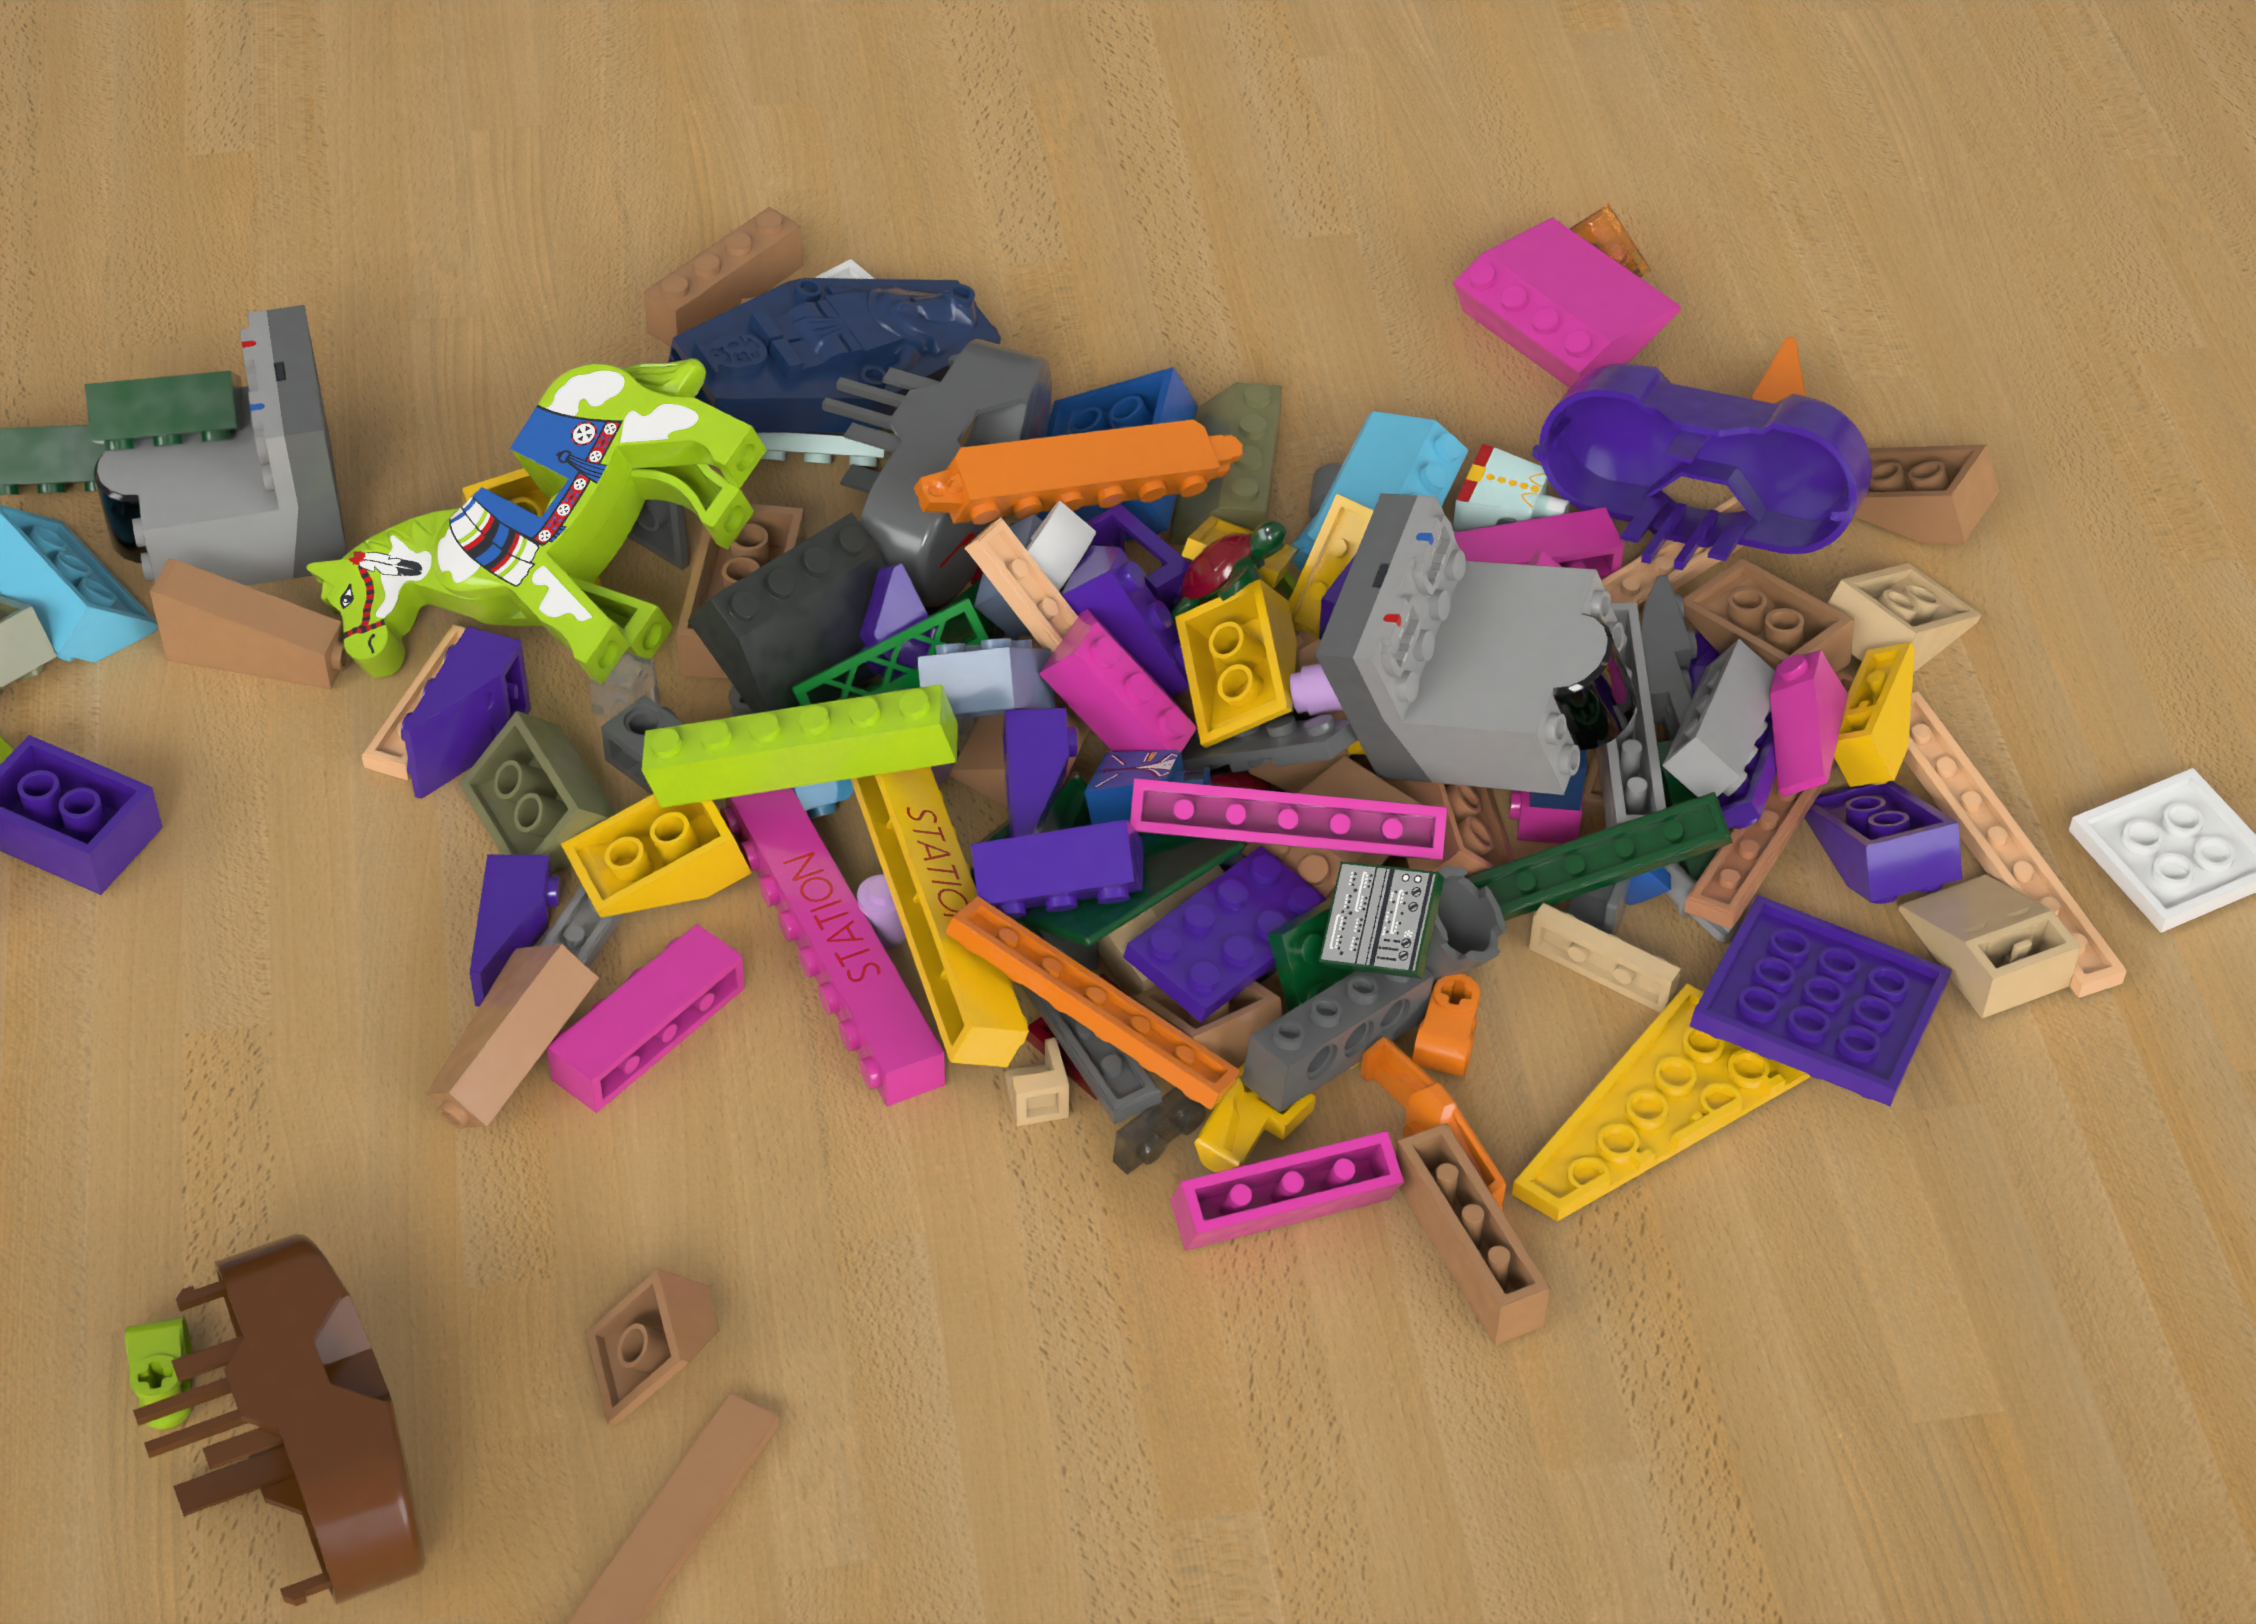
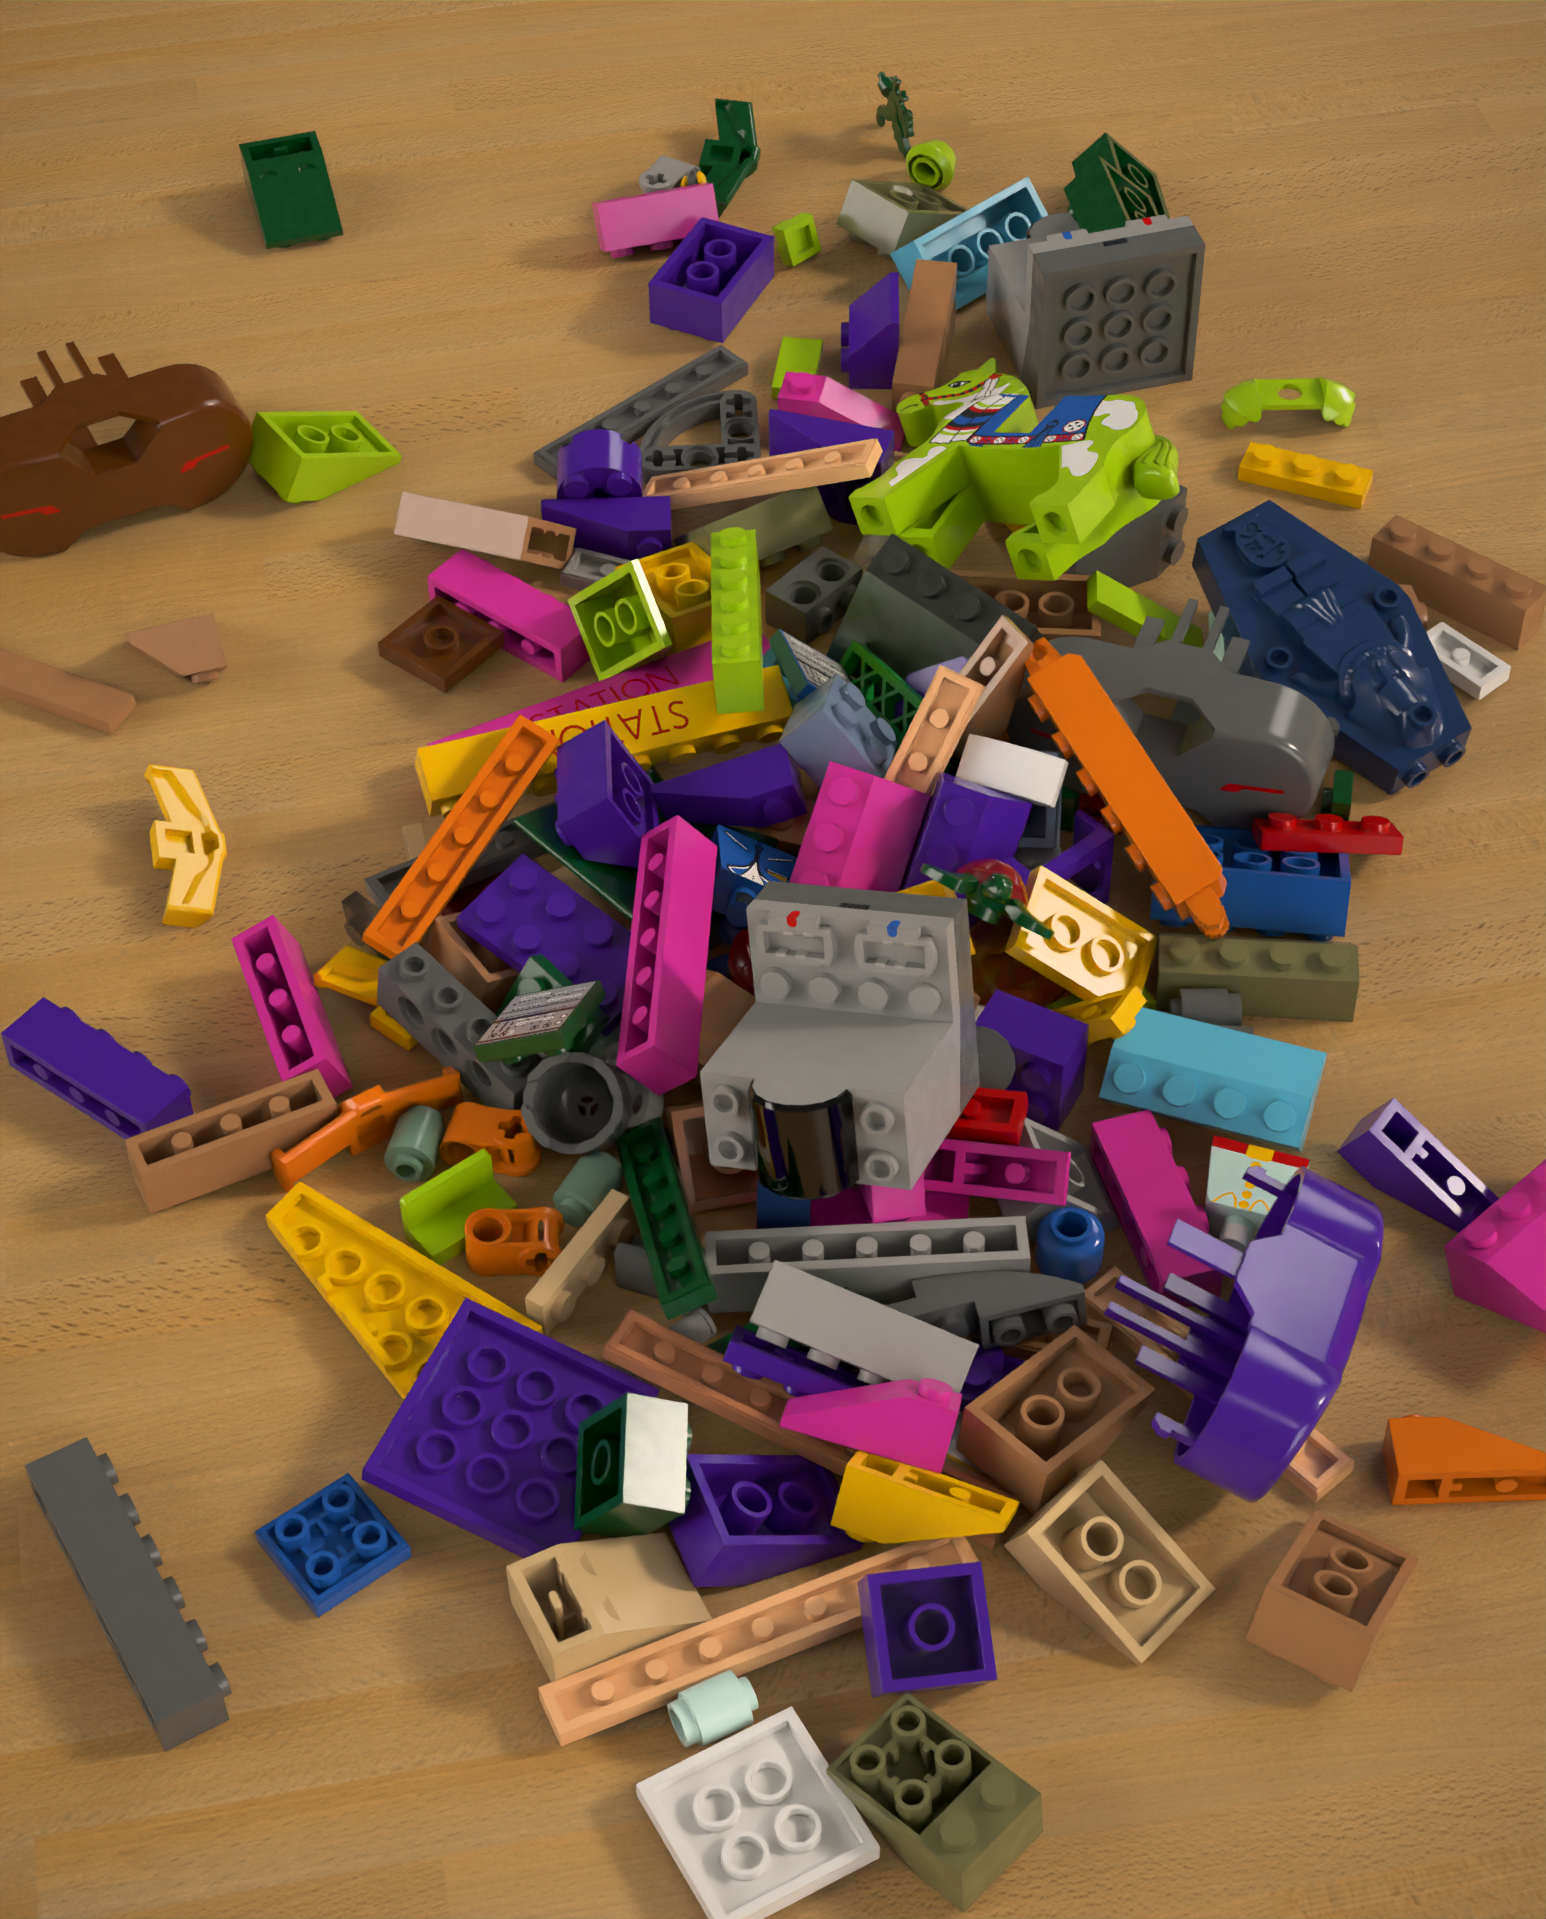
camera: 90 degrees right, 0 degrees up
(223, 666) = (872, 336): none -> dark purple slope
(233, 760) = (797, 356): none -> lime tile
(280, 908) = (637, 413): none -> dark grey tile
(302, 1196) = (317, 452): none -> lime slope
(340, 727) = (831, 400): none -> dark pink slope
(374, 824) = (662, 459): none -> dark grey beam
(405, 389) = (1248, 399): none -> lime piece
(438, 921) = (599, 467): none -> dark purple brick
(489, 766) = (767, 474): none -> light nougat tile
(520, 372) = (1305, 475): none -> yellow plate
(682, 1086) = (441, 644): none -> reddish brown plate
(741, 867) = (620, 622): none -> lime slope
(769, 485) = (1129, 609): none -> lime tile
(935, 555) = (1001, 669): none -> medium nougat slope
(1004, 1316) = (186, 844): none -> yellow plate
(1073, 393) = (1327, 834): none -> red plate
(1290, 501) = (1207, 1006): none -> dark grey brick
(1361, 1377) = (94, 1071): none -> dark purple brick
(1466, 1086) = (415, 1144): none -> sand green brick
(1472, 393) = (1415, 1167): none -> dark purple slope
(1521, 955) = (587, 1186): none -> sand green brick
(1539, 1059) = (439, 1208): none -> lime panel
(1578, 1012) = (510, 1240): none -> orange piece
(1879, 888) = (632, 1466): none -> dark green brick
(1935, 1153) = (333, 1544): none -> blue tile
(2002, 715) = (926, 1629): none -> dark purple brick
(2019, 1302) = (128, 1594): none -> dark grey brick
(2081, 871) = (713, 1709): none -> light aqua brick
(2152, 721) = (939, 1800): none -> olive slope

